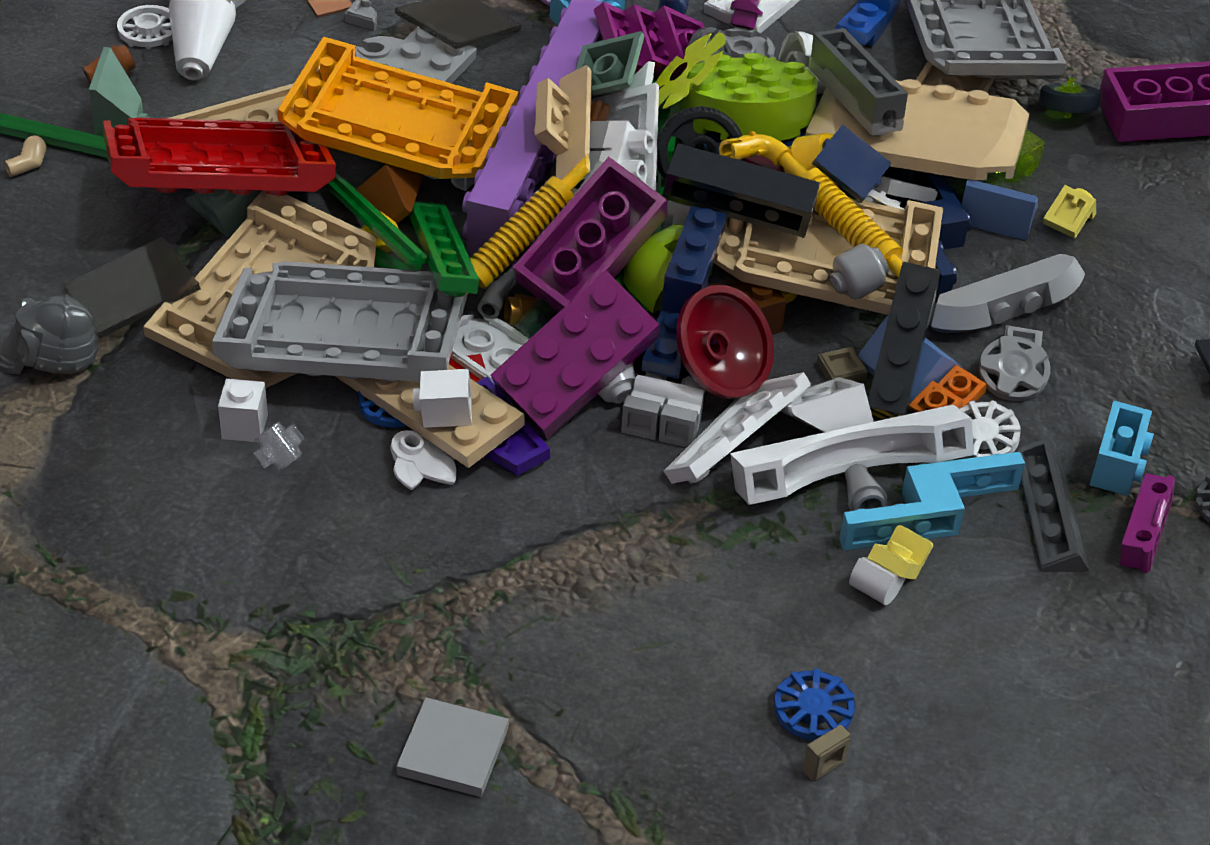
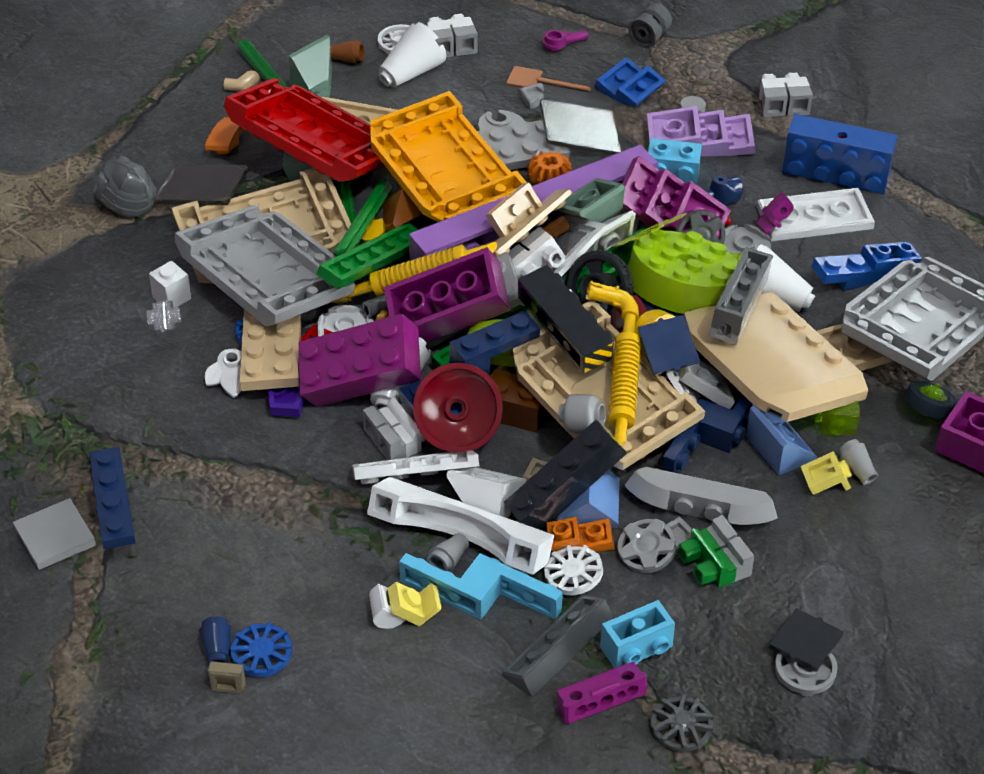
camera: 45 degrees right, 0 degrees up
(88, 220) = (224, 136): none -> orange slope
(444, 398) = (257, 339): white brick -> none
(483, 68) = (547, 166): none -> orange gear
(483, 661) = (111, 498): none -> dark blue bracket
(766, 727) = (215, 638): none -> dark blue cone
(1077, 178) = (858, 461): none -> light grey cone
(1088, 347) = (719, 553): none -> green hips

